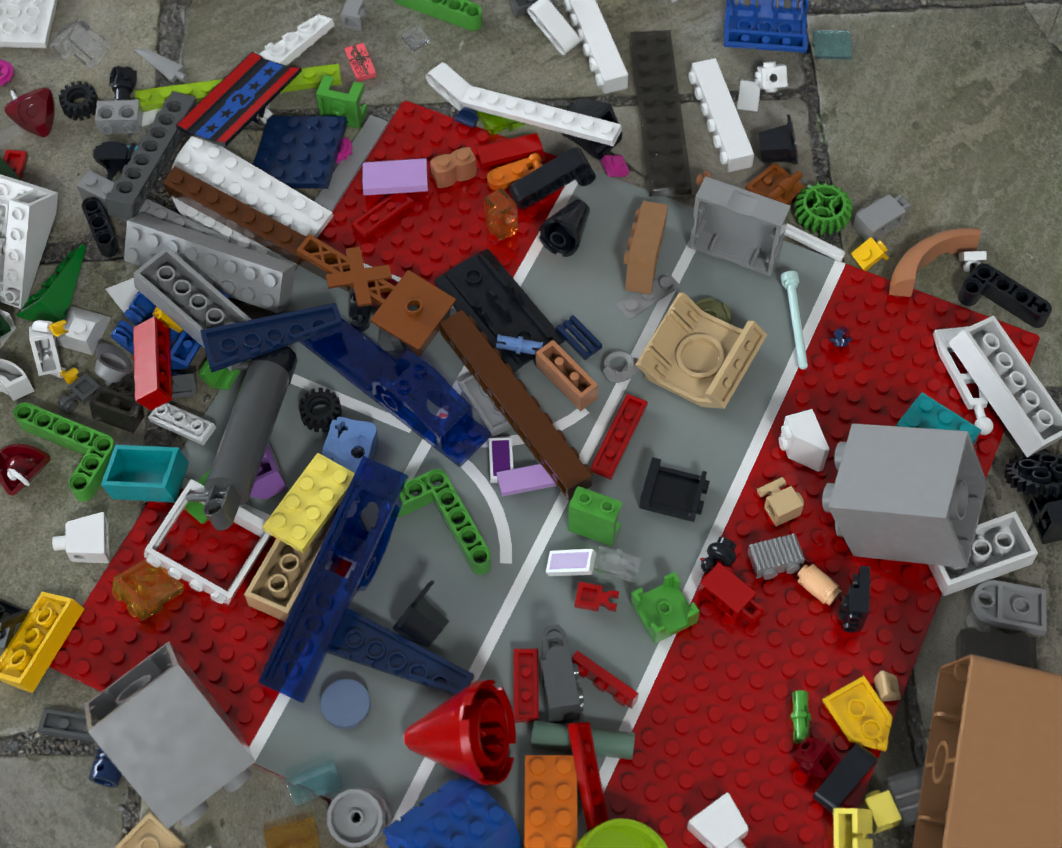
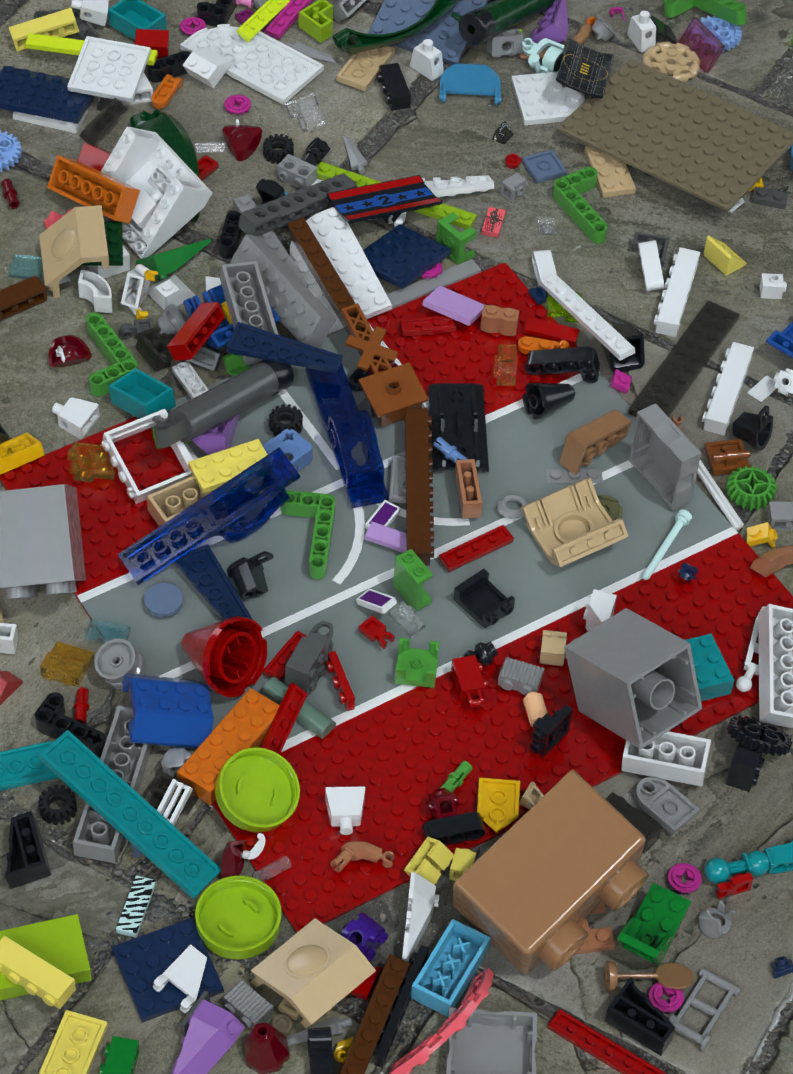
camera: 30 degrees right, 10 degrees down
(585, 332) = (498, 462): dark blue tile -> none

